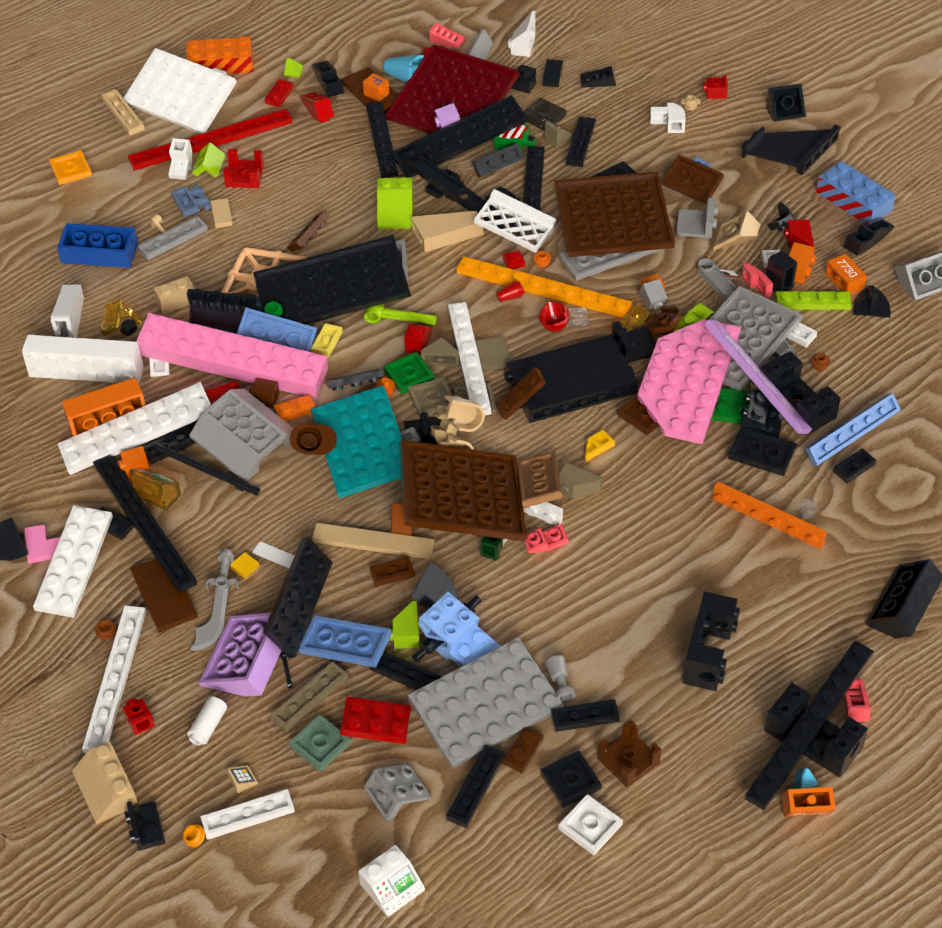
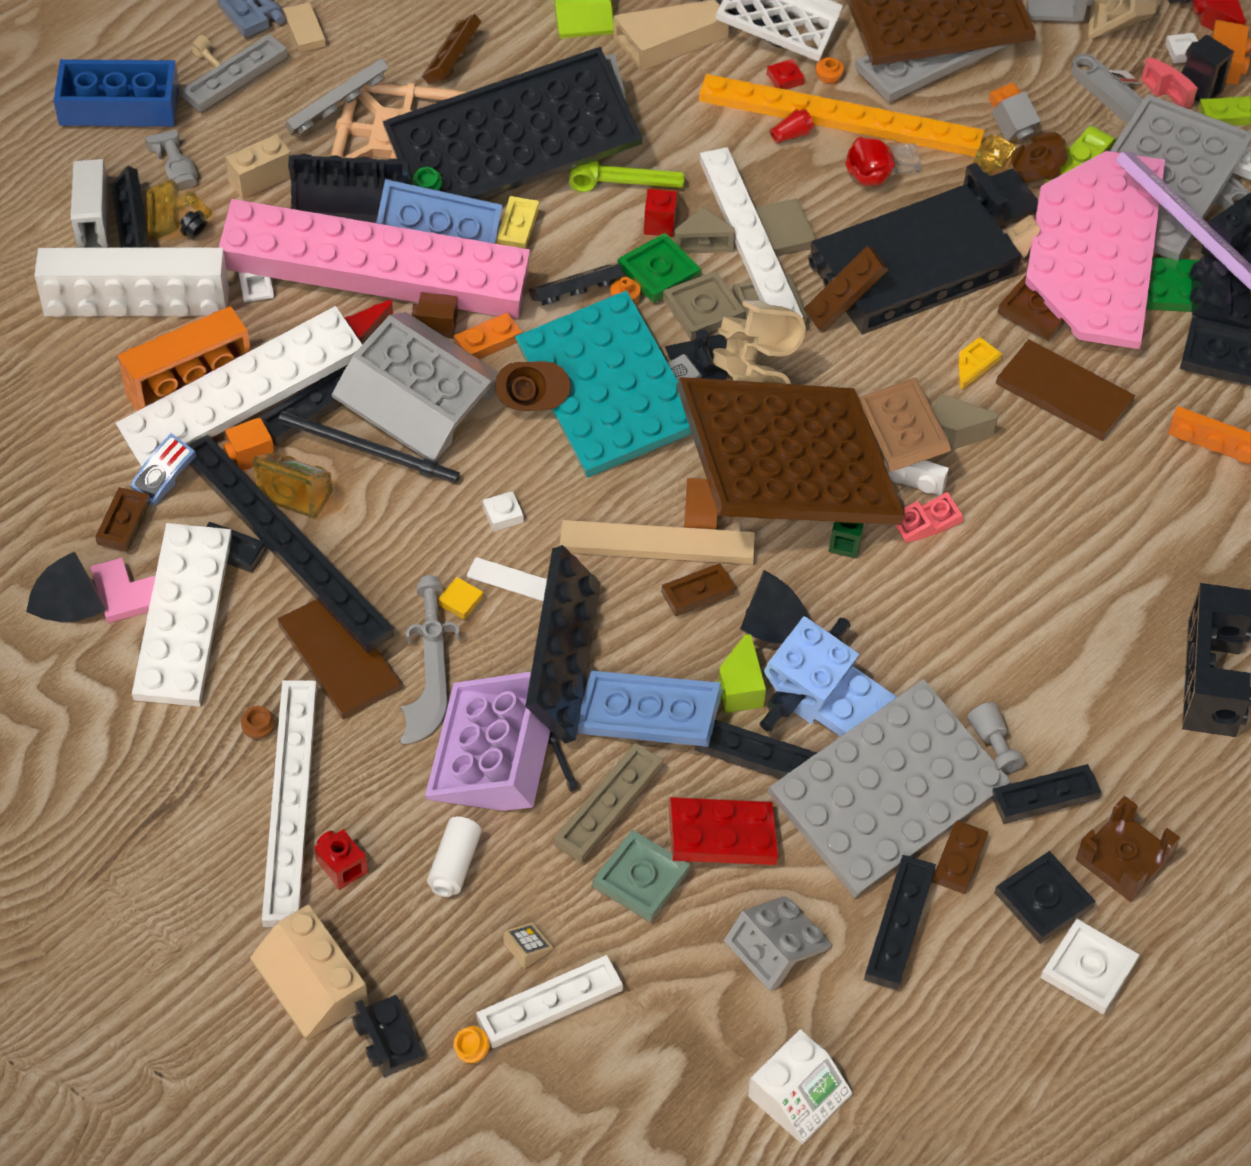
camera: 10 degrees left, 5 degrees up
(49, 501) = (122, 519): none -> reddish brown plate
(76, 474) = (162, 467): none -> slope
(92, 315) = (130, 209): none -> black plate
(128, 293) = (178, 166): none -> light grey piece
(236, 253) = (327, 104): none -> light grey plate
(282, 514) = (503, 511): none -> white plate
(641, 367) = (1023, 233): none -> tan slope
(651, 466) = (1065, 389): none -> reddish brown tile

